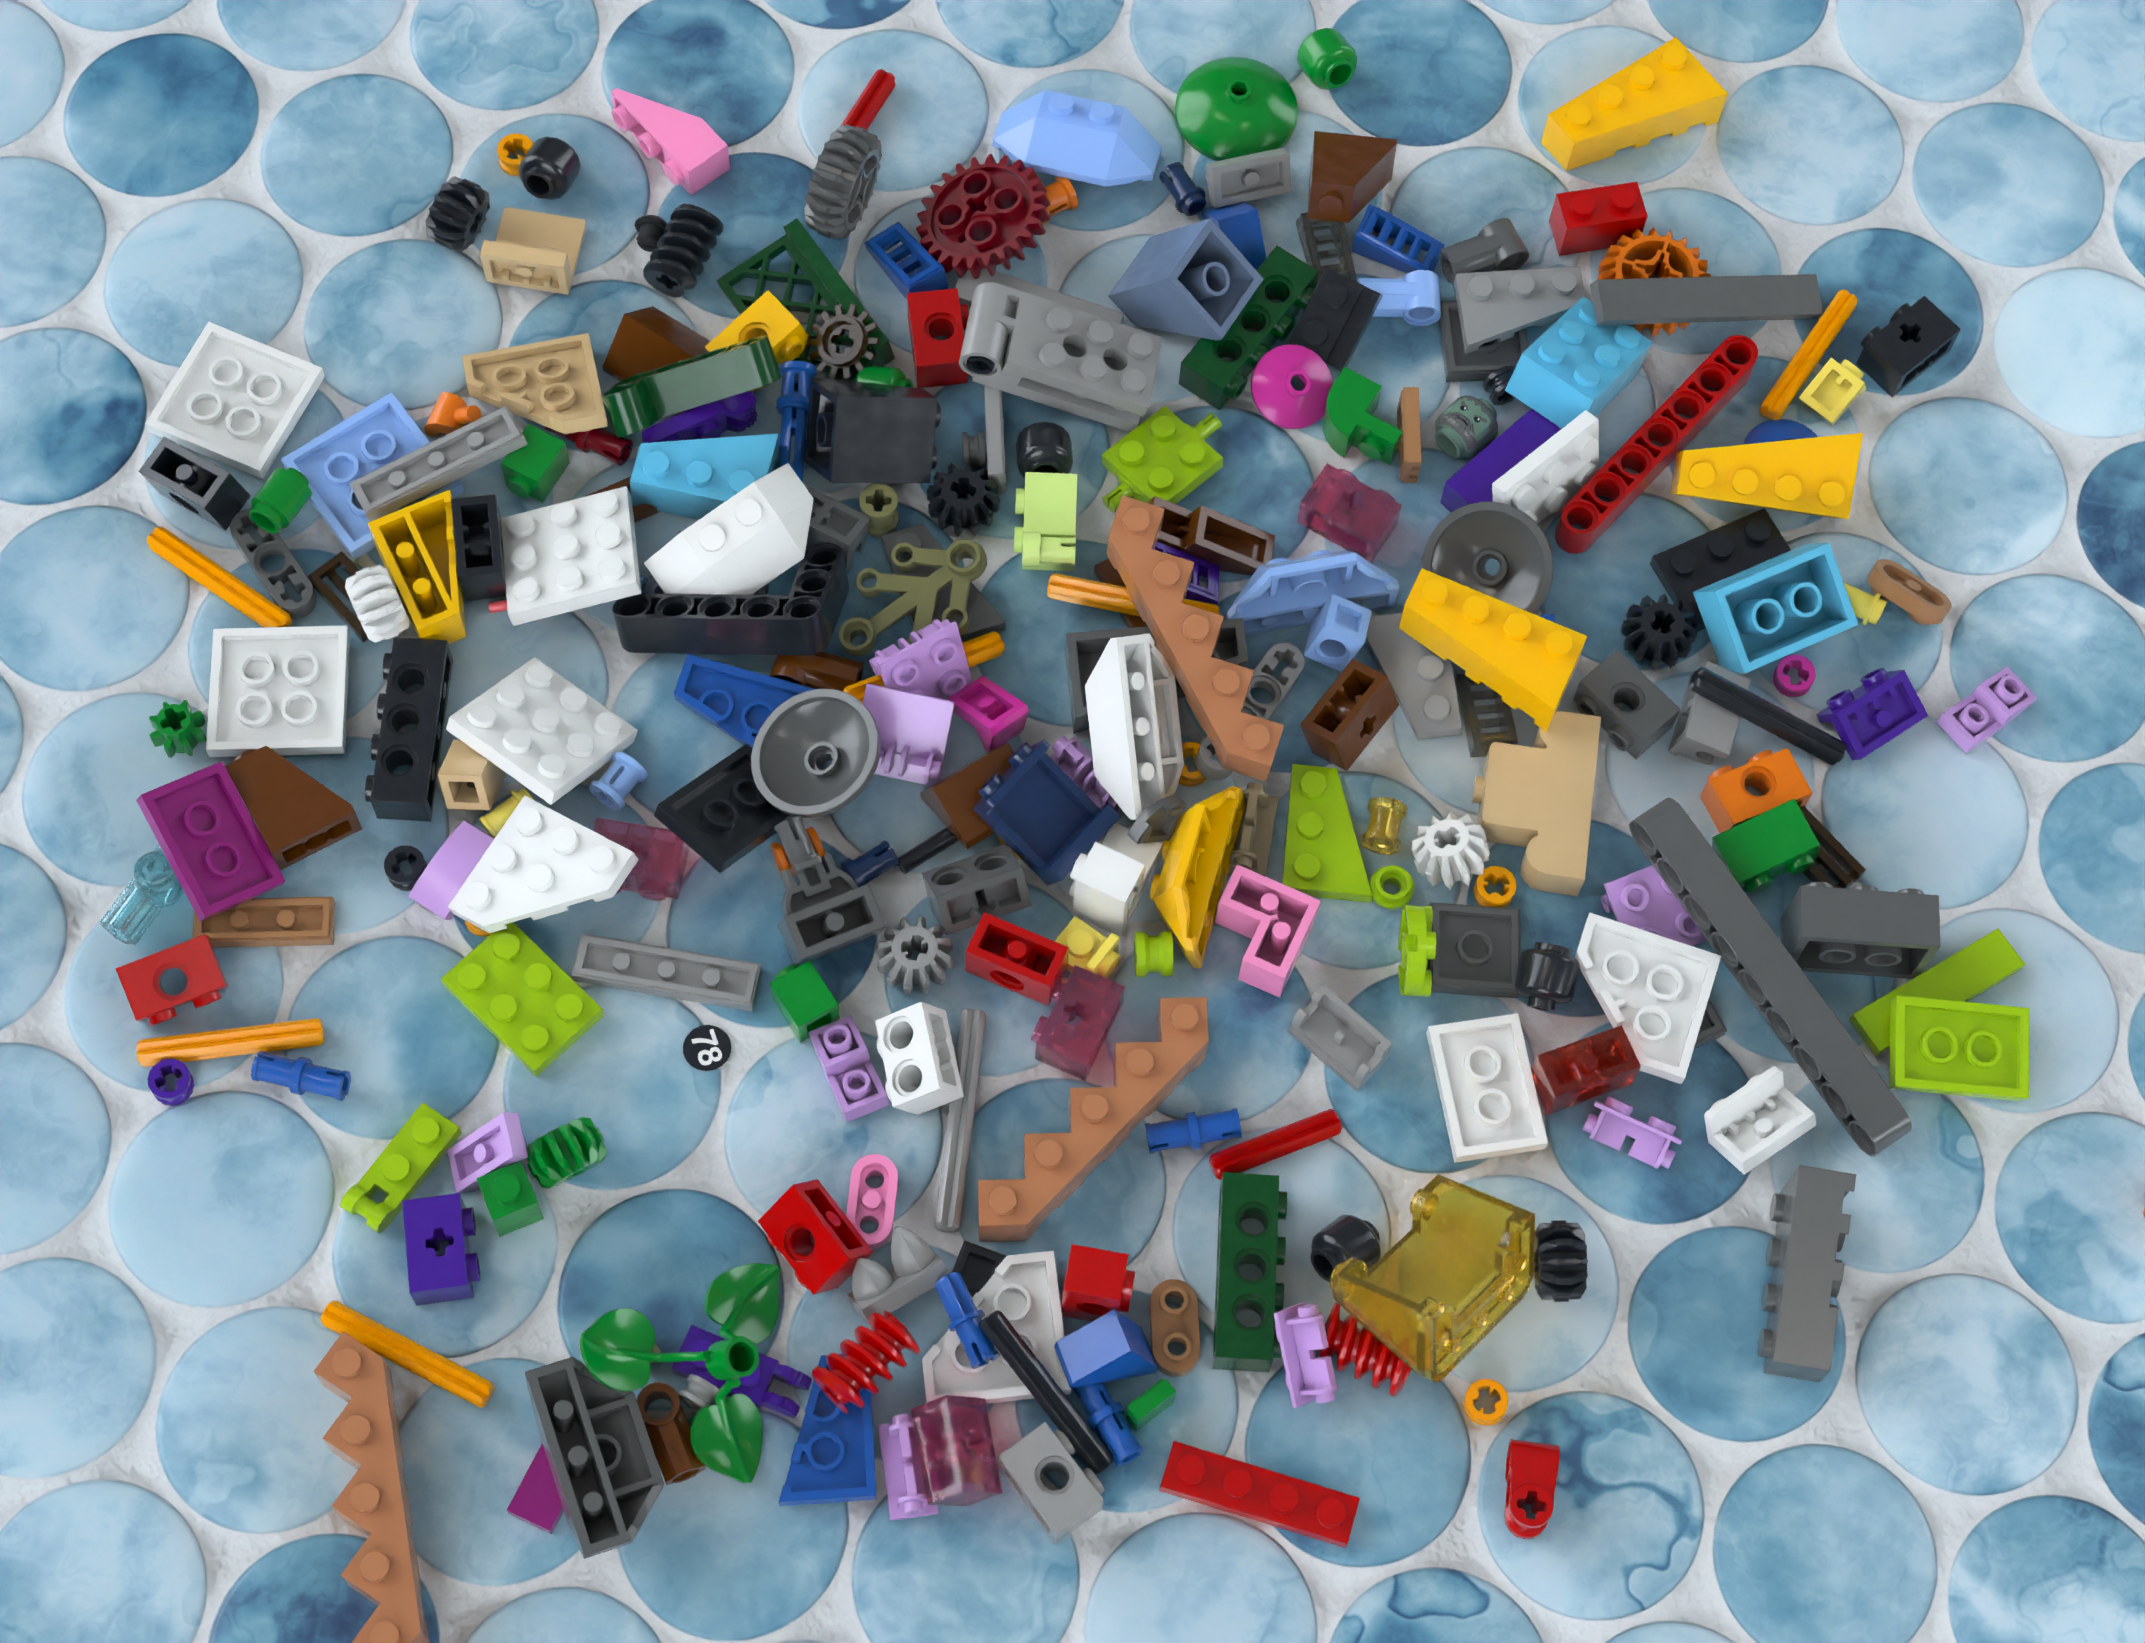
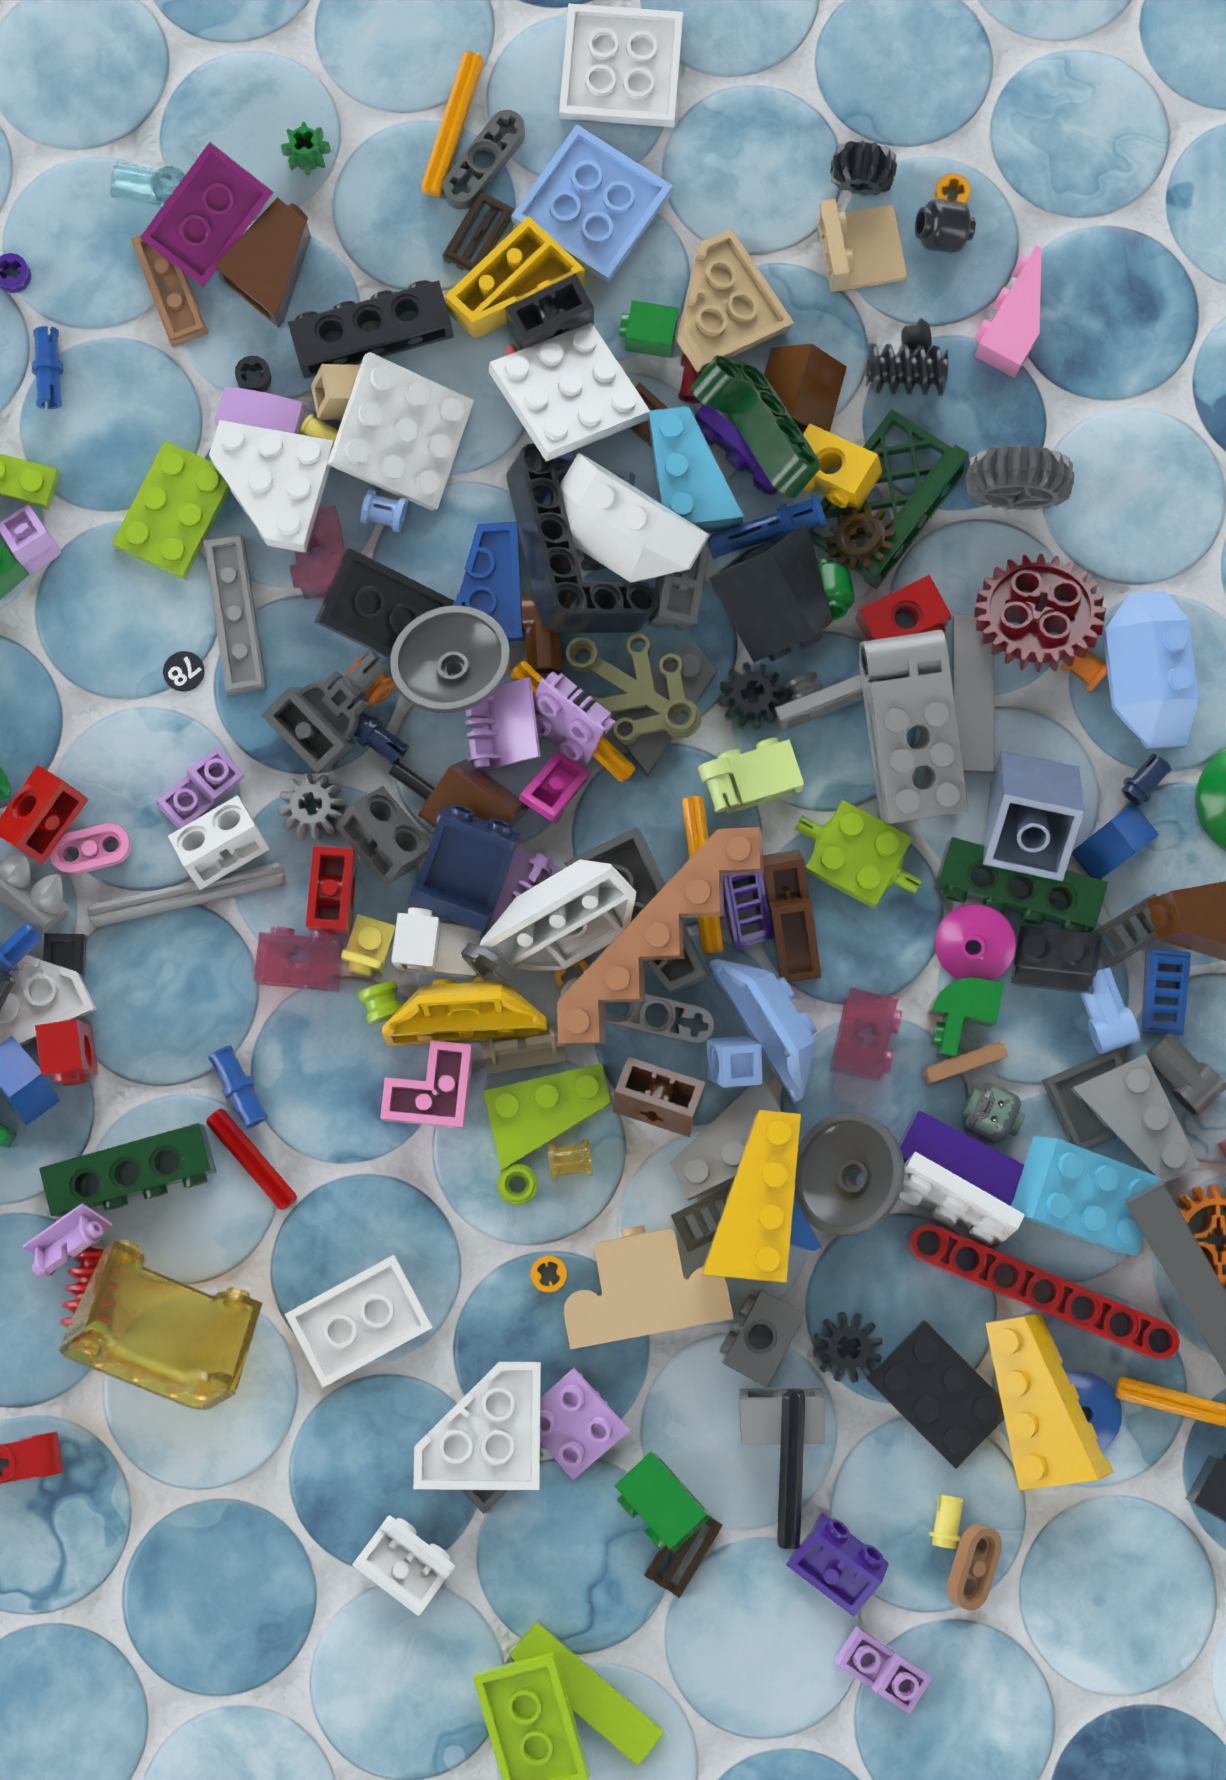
camera: 75 degrees right, 15 degrees up
(144, 980) = (108, 245): red brick -> none
(194, 483) = (522, 65): black brick -> none
(231, 1042) = (59, 303): light orange axle -> none
(278, 690) = (369, 212): white plate -> none
(280, 499) = (531, 138): green brick -> none
(377, 603) = (459, 252): white gear -> none
(438, 463) = (612, 250): light grey tile -> none
(449, 415) = (670, 243): orange piece -> none
(566, 1152) = (43, 594): green gear -> none
(803, 999) = (242, 731): green brick -> none
(871, 100) = (1116, 470): red axle -> none
(878, 497) = (721, 620): olive bush -> none
(927, 278) = (960, 586): blue slope -> none
(1044, 449) = (822, 749): black head -> none
(1097, 1123) = (214, 1004): nougat brick -> none
(1174, 1325) = (66, 1127): medium nougat plate -> none
(1248, 177) = (1176, 833): light grey tile -> none
(1340, 1037) = (360, 1183): light grey hinge -> none
(1344, 1239) = (173, 1246): black head -> none
(1416, 947) = (452, 1222): lime plate -> none
(1450, 850) = (547, 1219): white gear -> none
(1475, 950) = (485, 1273): dark grey tile -> none
(1497, 383) = (1050, 1128): black bush -> none
(1499, 1407) = (88, 1389): light orange bush -> none
(1547, 976) = (476, 1342): black head -> none
(1560, 1261) = (216, 1428): black gear -> none
(1584, 1069) = (395, 1399): clear red brick -> none
(1650, 1138) = (362, 1478): lavender hinge -> none
(1769, 772) = (727, 1502): orange brick -> none
(1770, 977) = (535, 1537): dark grey beam -> none
(1775, 608) = (900, 1447): medium azure brick -> none
(1804, 1273) = (274, 1641): dark grey wedge -> none
(1805, 670) = (863, 1490): dark pink bush -> none
(1833, 389) = (1164, 1441): light yellow bracket -> none
(1862, 930) = (607, 1608): dark grey brick -> none

